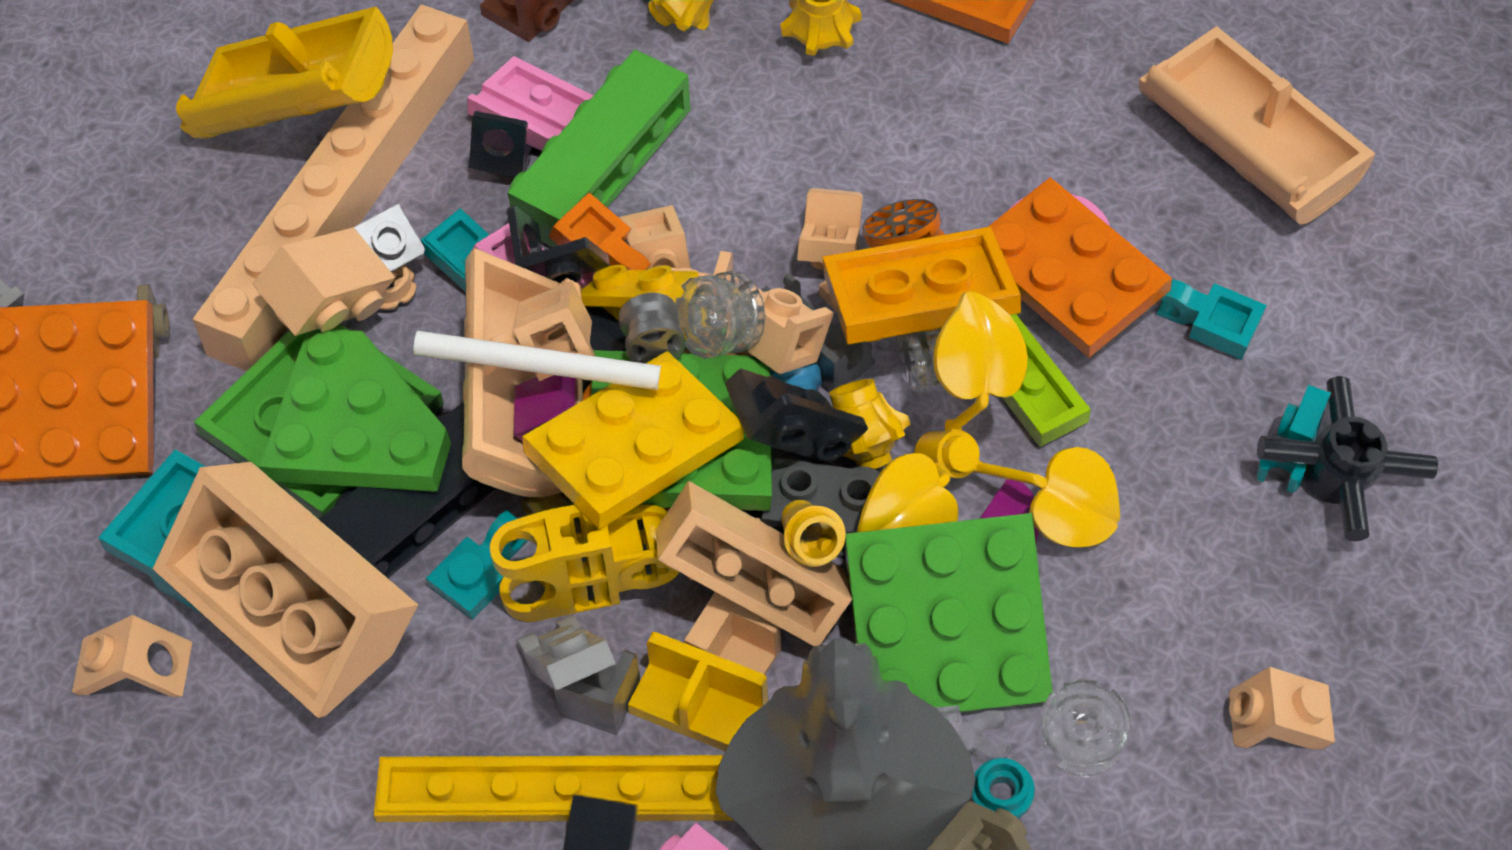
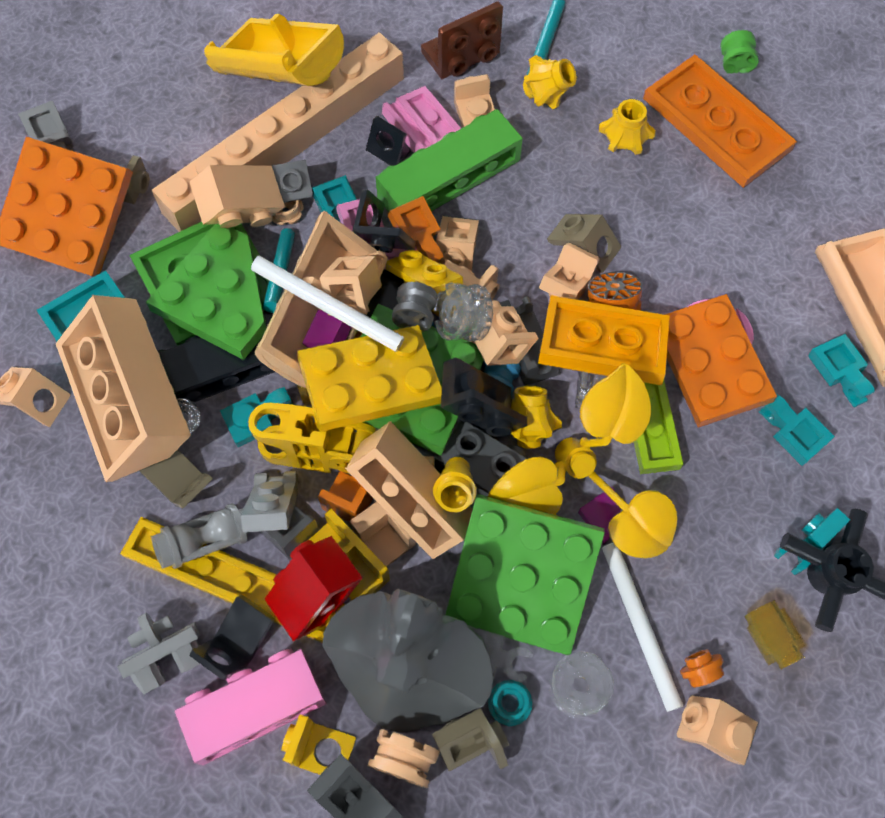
camera: 20 degrees right, 10 degrees up
(411, 688) = (177, 479): none -> dark tan bracket
(425, 367) = (282, 260): none -> teal bar
(464, 758) = (185, 541): none -> light grey piece
(588, 52) = (472, 98): none -> light nougat bracket
(662, 613) = (345, 497): none -> orange panel
(677, 732) = (312, 587): none -> red brick
(827, 168) = (584, 232): none -> dark tan bracket
(1130, 631) = (642, 628): none -> white bar
(1229, 646) = (702, 668): none -> orange plate
(1236, 215) = (842, 363): none -> teal plate
(1301, 570) = (775, 635): none -> clear yellow brick

